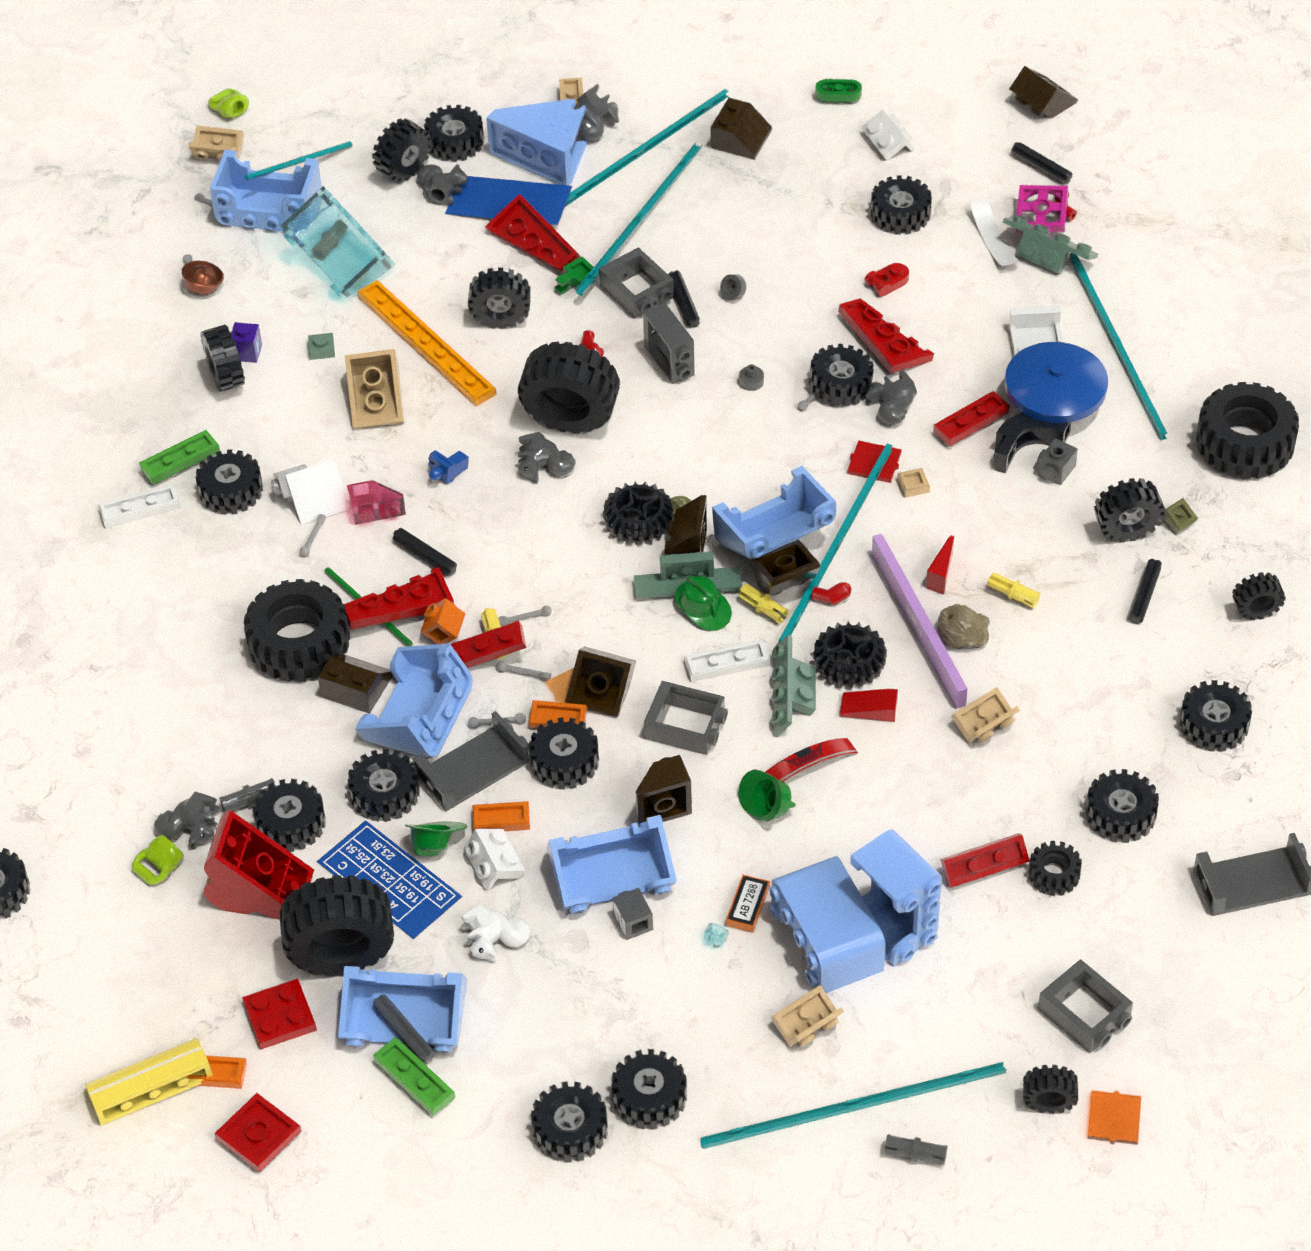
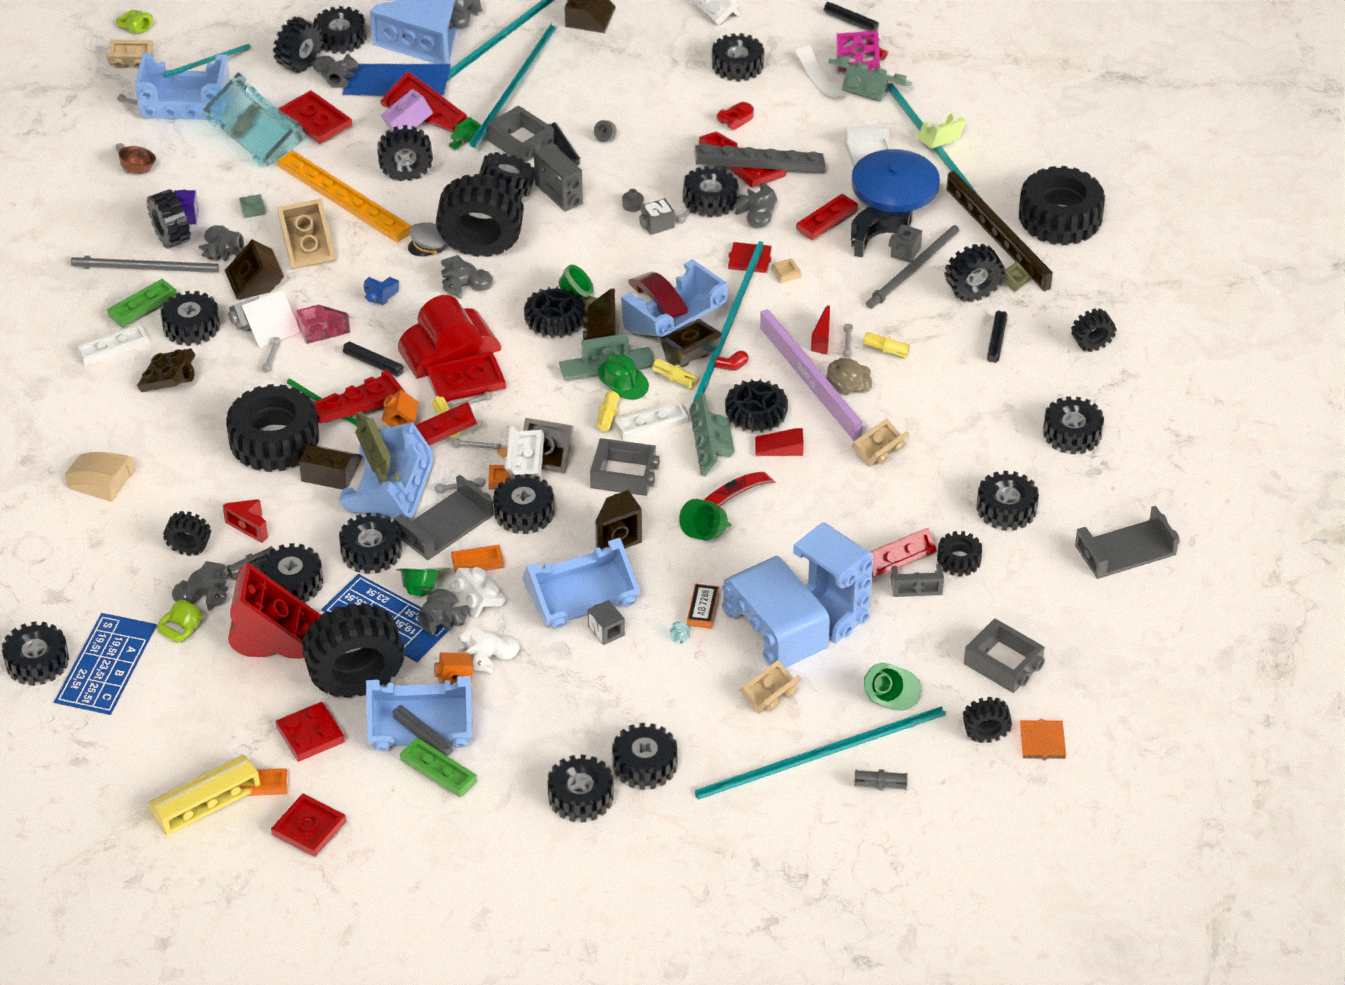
camera: 10 degrees left, 5 degrees down
(68, 903) = (105, 663): none -> blue sticker
(99, 667) = (100, 474): none -> tan slope
(129, 400) = (88, 262): none -> dark grey bar
(180, 753) = (192, 543): none -> black tyre
(194, 546) = (168, 370): none -> dark brown plate
(251, 739) = (247, 518): none -> red slope
(281, 390) = (221, 242): none -> dark grey animal
(309, 429) = (254, 271): none -> dark brown slope
(405, 670) = (374, 447): none -> olive plate
(409, 240) = (316, 116): none -> red plate
(446, 881) = (439, 611): none -> dark grey animal
(450, 955) = (453, 666): none -> orange brick
(506, 407) = (425, 240): none -> light grey piece
(510, 534) = (444, 335): none -> red brick
(511, 246) = (408, 111): none -> lavender hinge
(525, 585) = (466, 376): none -> red plate
(571, 691) = (524, 452): none -> white bracket
(611, 334) = (511, 170): none -> black wheel
(669, 477) = (577, 280): none -> green piece
(679, 644) = (607, 411): none -> light yellow axle
(762, 502) = (661, 292): none -> dark red slope
(775, 401) = (657, 216): none -> dark grey brick
(904, 338) = (759, 158): none -> dark grey plate
(947, 1033) = (892, 686): none -> piece
(972, 563) = (847, 328): none -> light grey hinge
(999, 900) = (918, 583): none -> dark grey hinge
(1016, 525) = (880, 295): none -> dark grey bar
(1122, 323) = (941, 133): none -> yellowish green hinge
(1169, 456) = (999, 231): none -> dark brown tile

